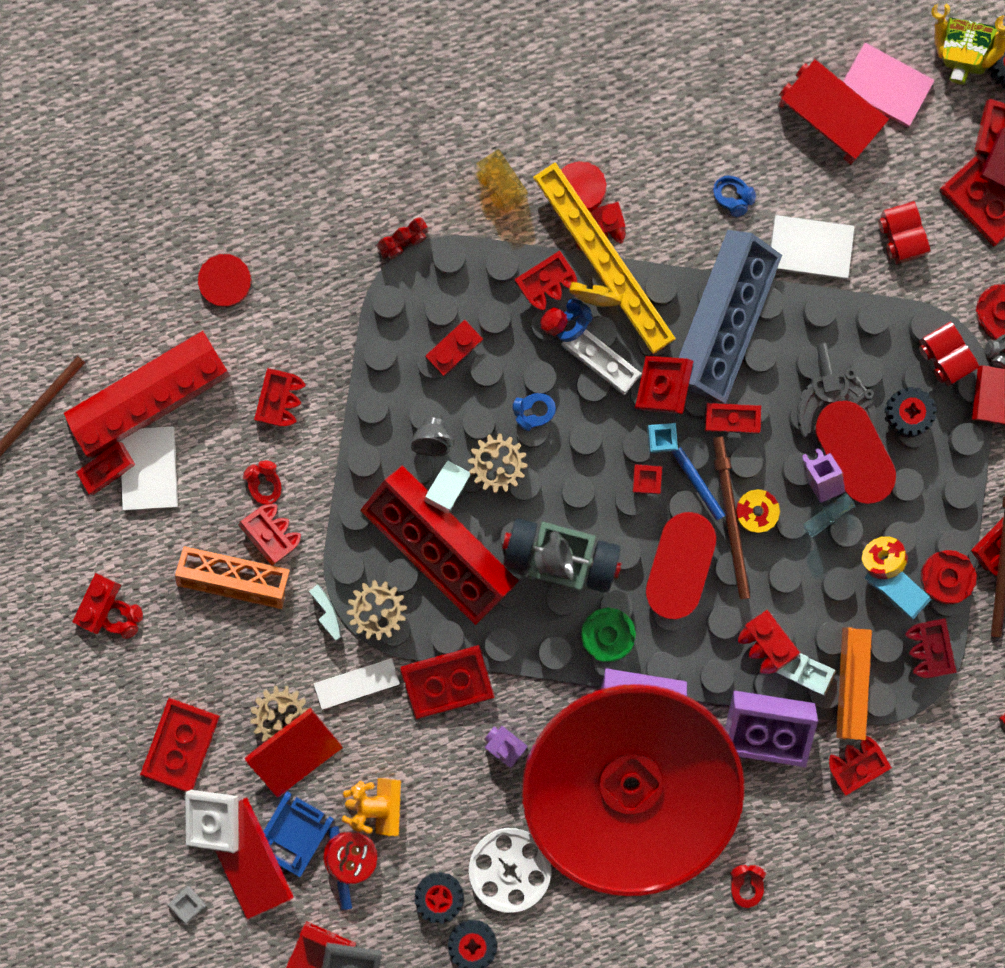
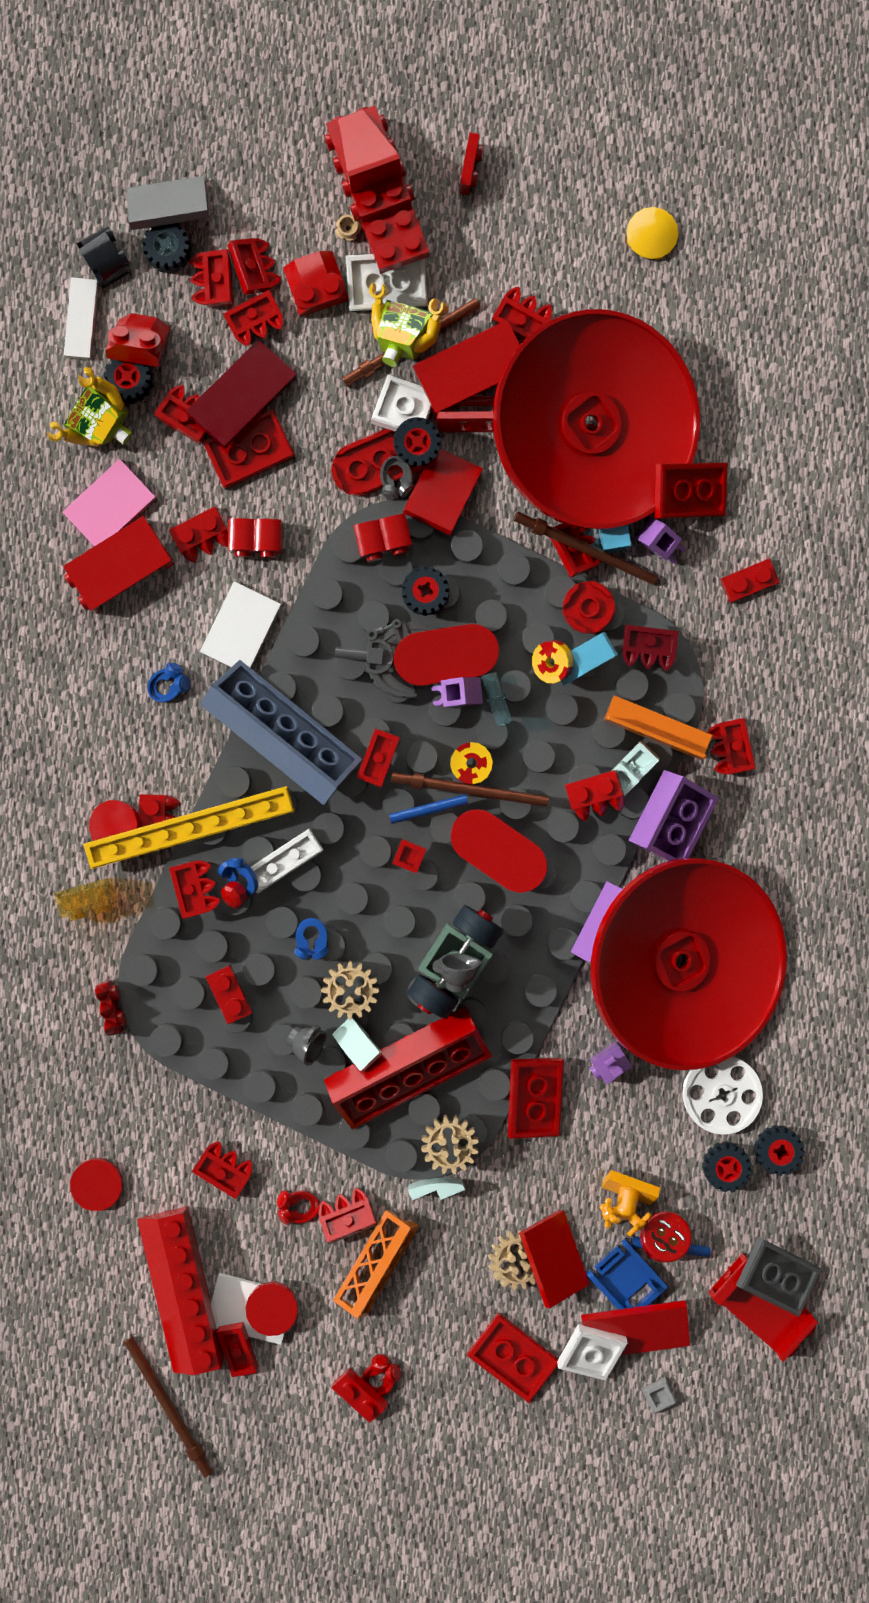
camera: 70 degrees left, 5 degrees up
(157, 488) = (271, 1308): none -> red tile
(356, 683) = (509, 1179): white tile -> none
(598, 296) = (222, 849): yellow dish -> none
(608, 634) = (540, 938): green tile -> none
(662, 438) = (375, 829): medium azure slope -> none
(664, 384) = (326, 812): red tile -> none
(757, 875) = (800, 871): red piece -> none
(889, 179) = (200, 532): none -> red plate

